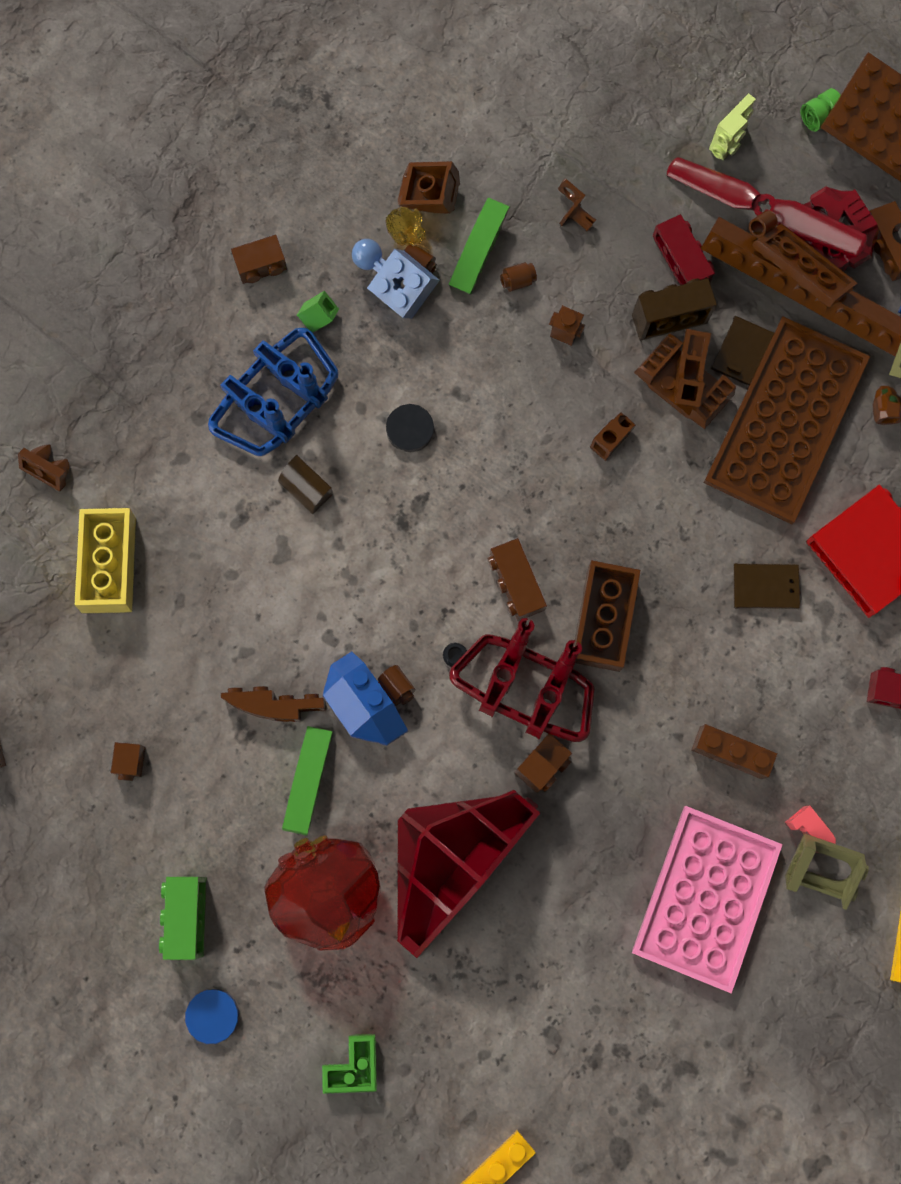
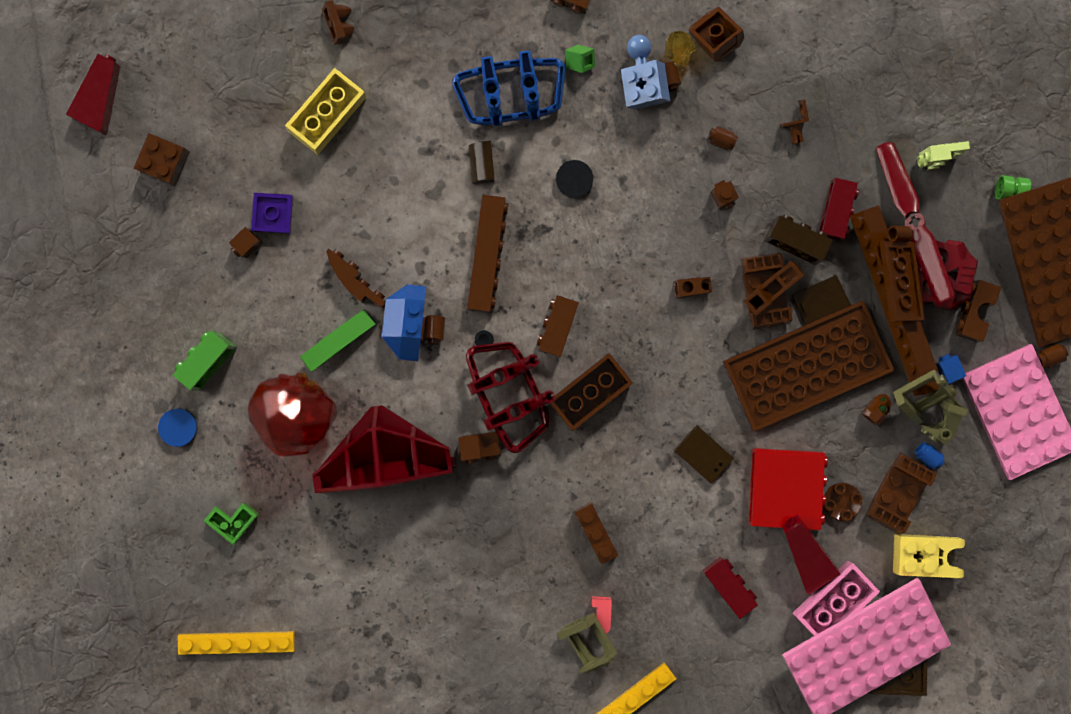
camera: 40 degrees right, 10 degrees up
(131, 707) = (272, 213): none -> dark purple plate
(385, 567) = (486, 253): none -> reddish brown brick
(479, 245) = (715, 98): bright green slope -> none
(707, 899) = (507, 600): bright pink plate -> none

